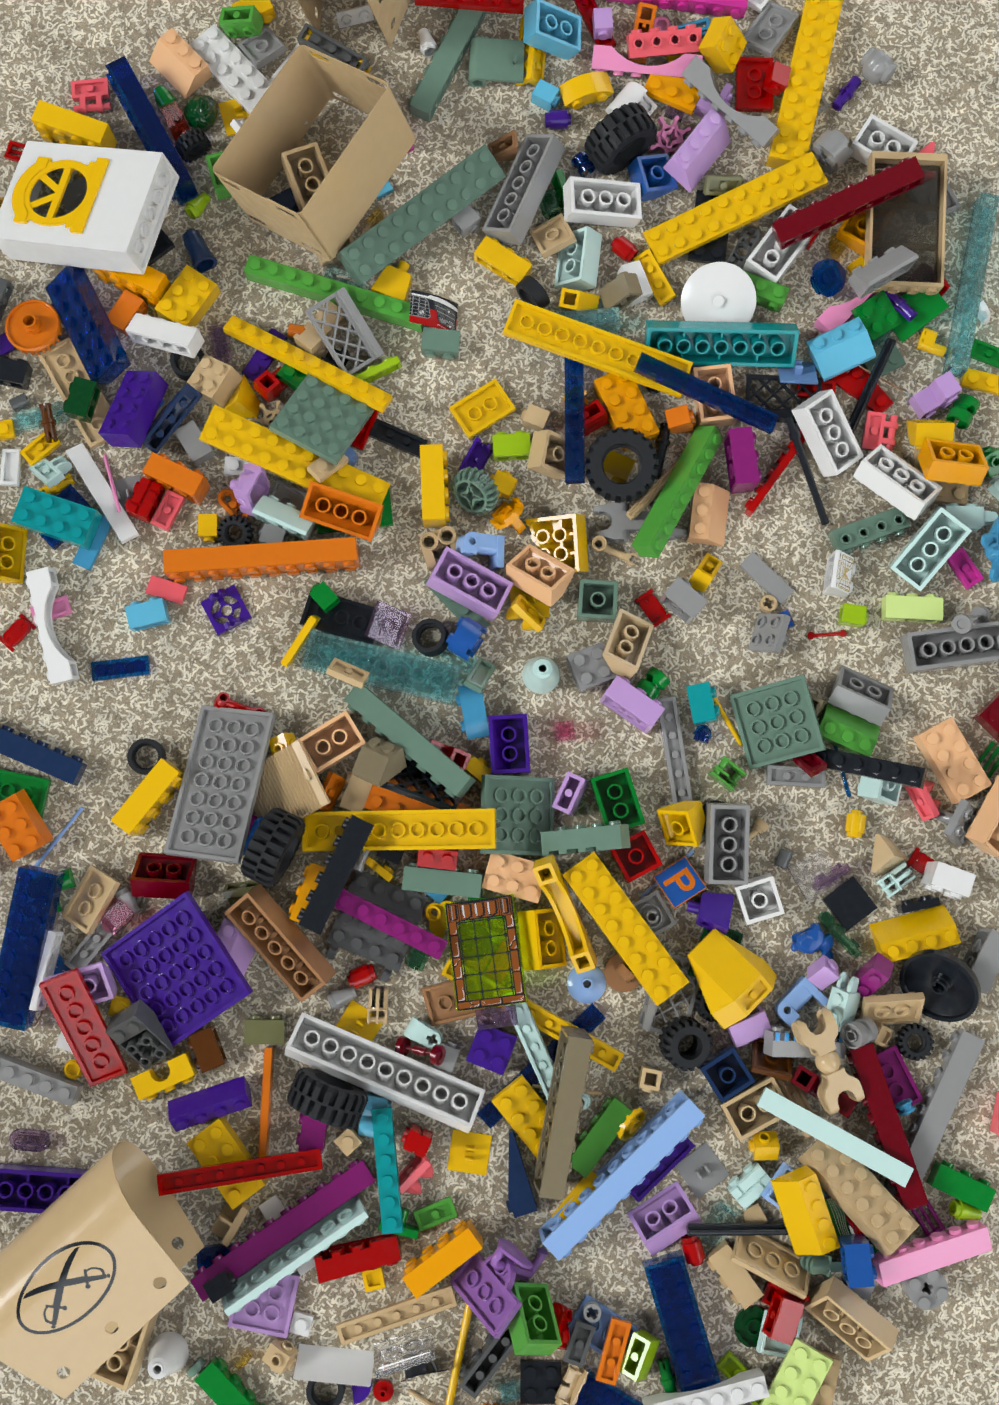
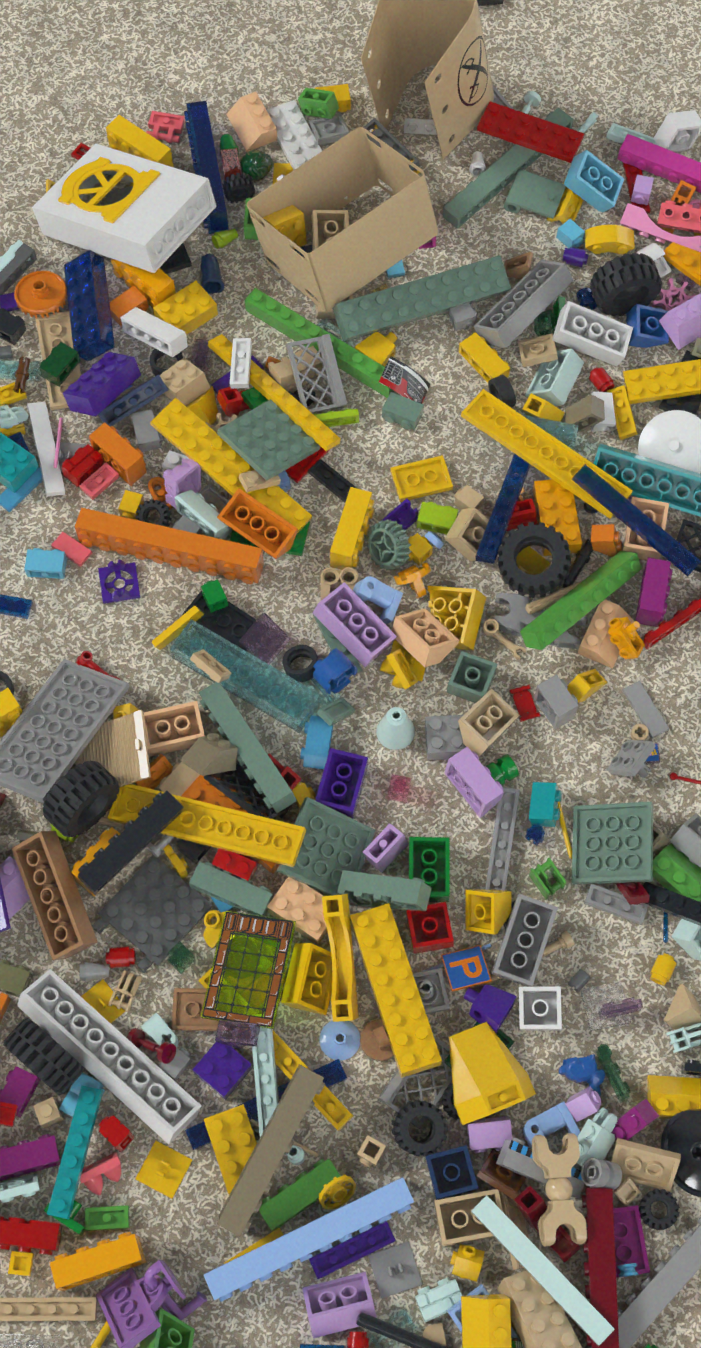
camera: 20 degrees right, 15 degrees down
(260, 176) = (290, 223): none -> yellow brick
(265, 344) = (240, 363): none -> white plate
(391, 924) = (167, 912): magenta brick -> none
(516, 469) = (434, 539): none -> light blue tile
(520, 1194) = (201, 1218): dark blue slope -> none
(729, 514) = (625, 636): none -> light orange brick
(849, 903) = (633, 1046): black tile -> none

